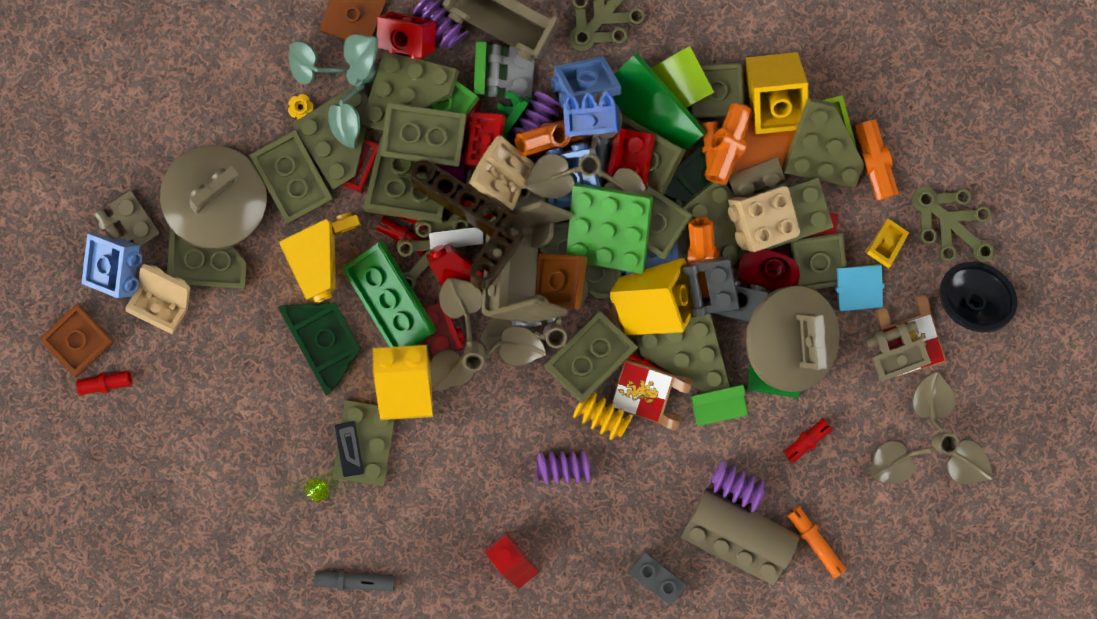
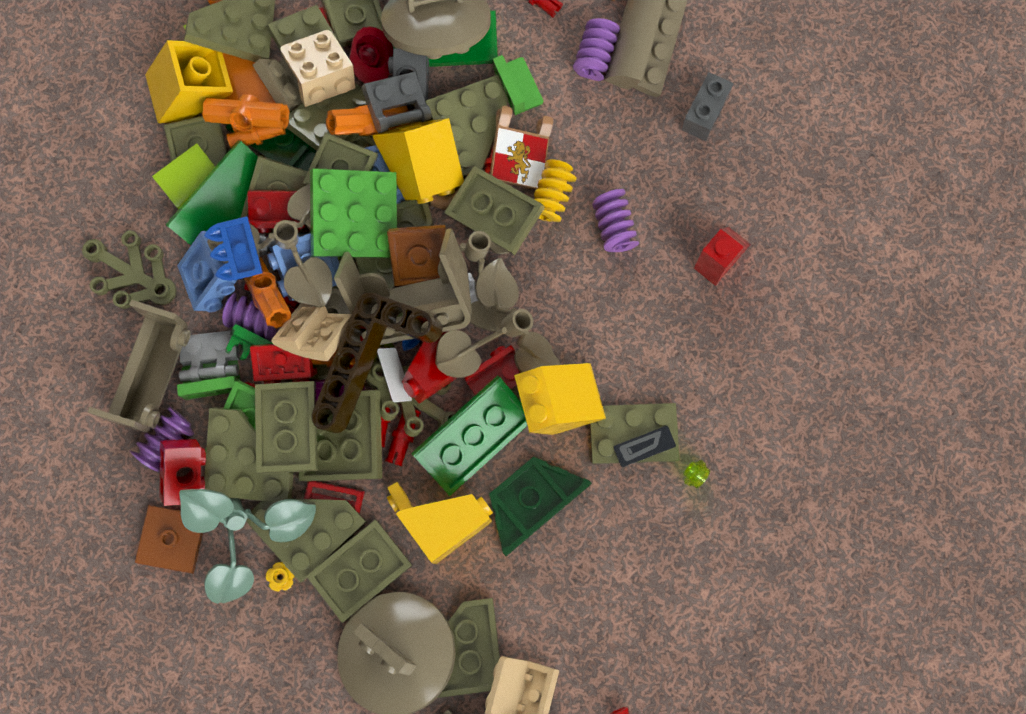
camera: 95 degrees left, 10 degrees down
(353, 581) = (784, 414): dark grey pin -> none

